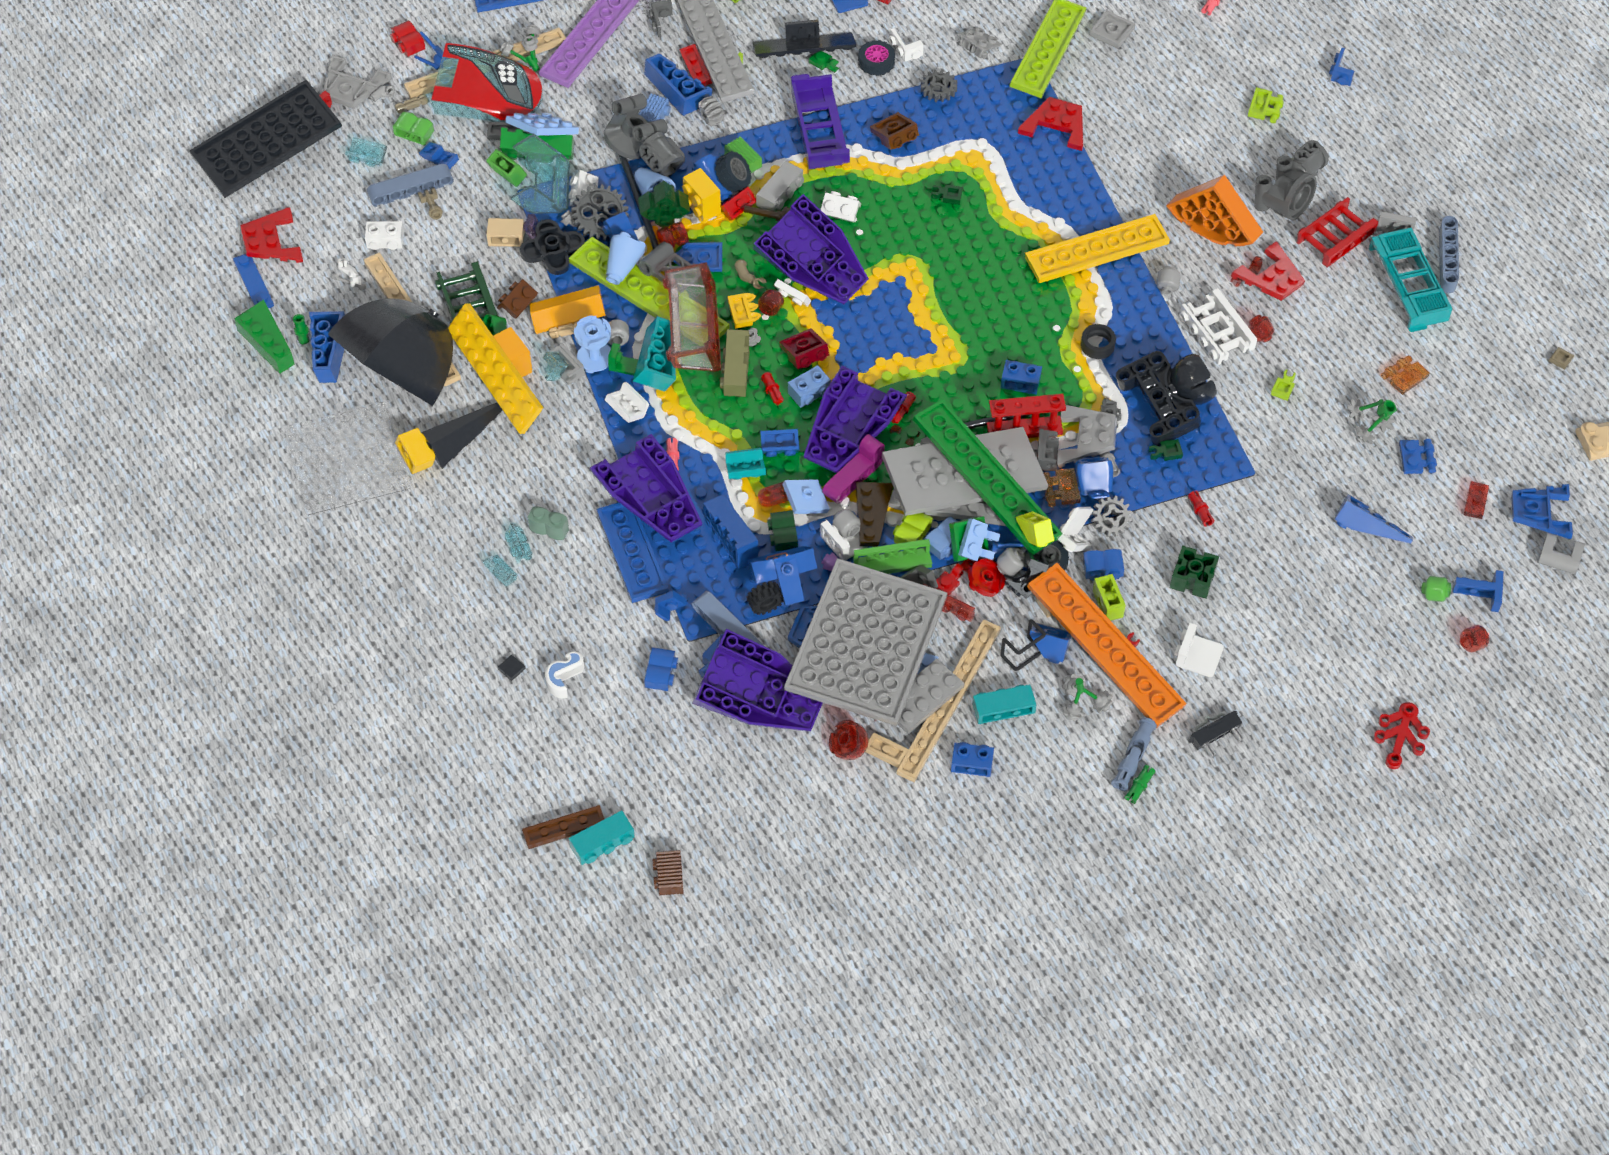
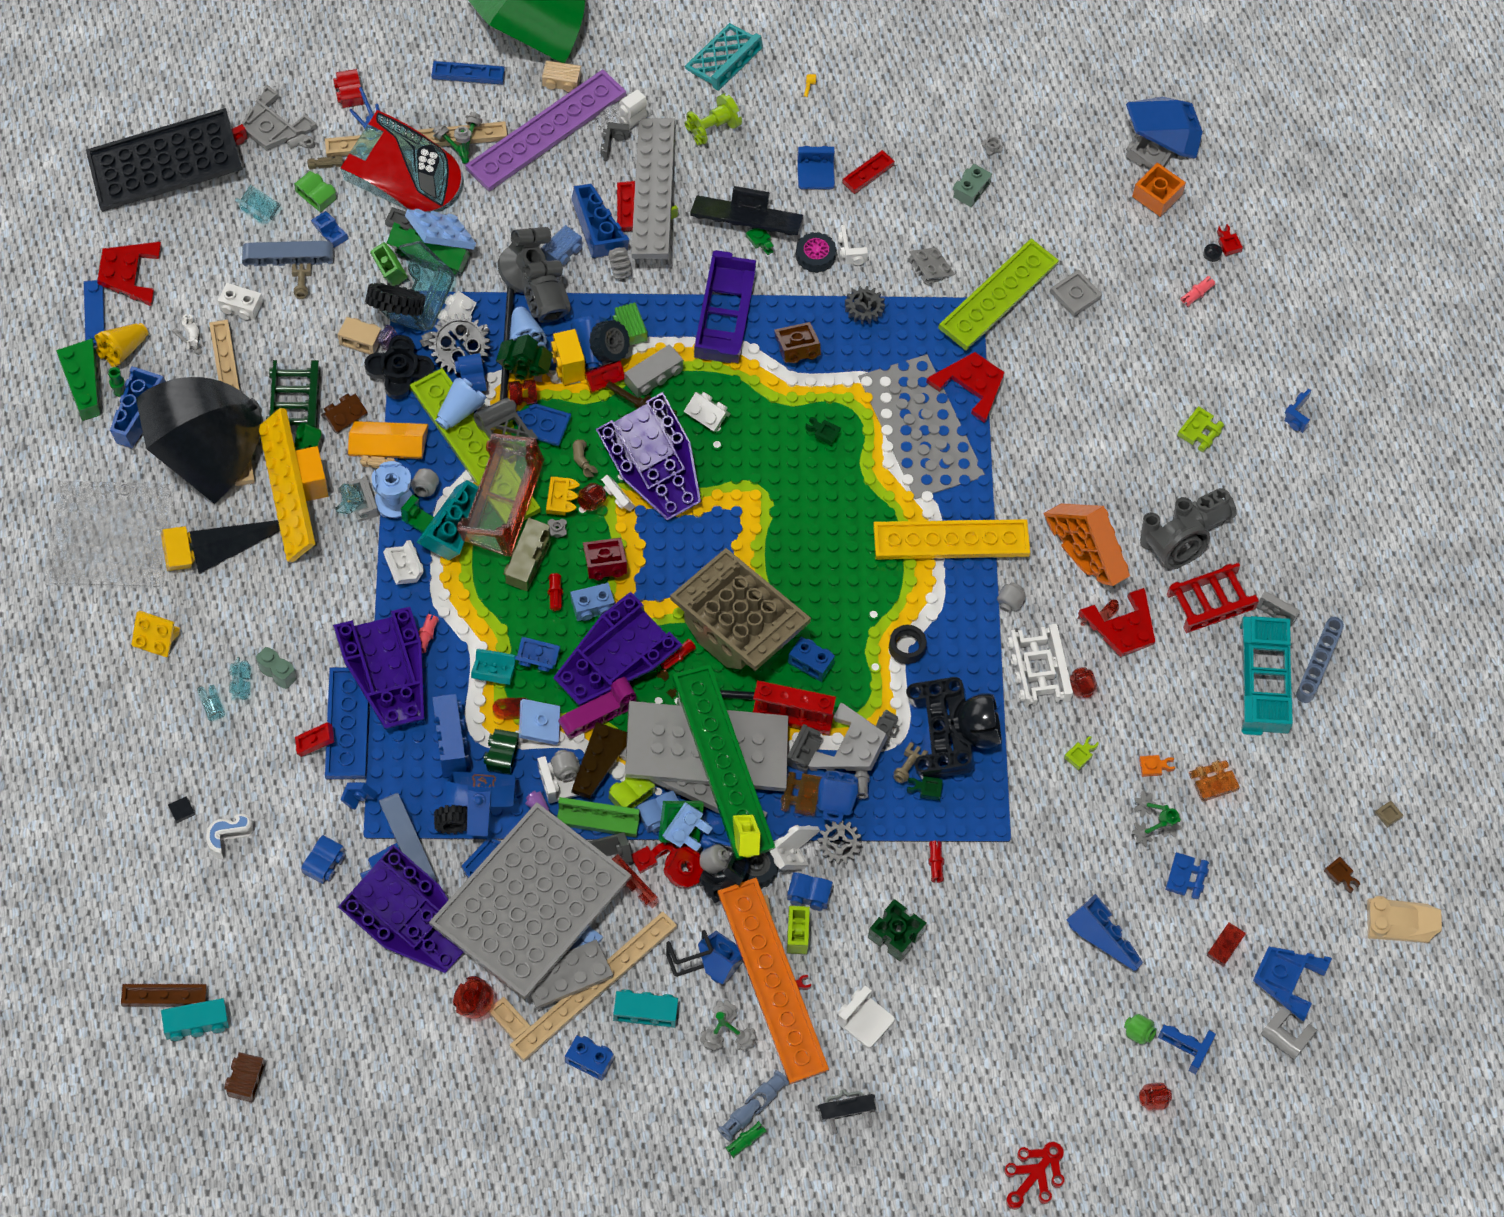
camera: 15 degrees right, 5 degrees up
(288, 298) = (119, 342): none -> yellow cone
(424, 527) = (154, 633): none -> yellow bracket
(529, 188) = (395, 299): none -> black tyre
(609, 571) = (314, 739): none -> red plate
(945, 354) = (737, 612): none -> dark tan wedge
(1031, 156) = (913, 420): none -> light grey plate
(1141, 446) = (901, 774): none -> dark tan hinge
(1348, 378) = (1153, 766): none -> orange plate
(1543, 415) = (1341, 873): none -> reddish brown plate

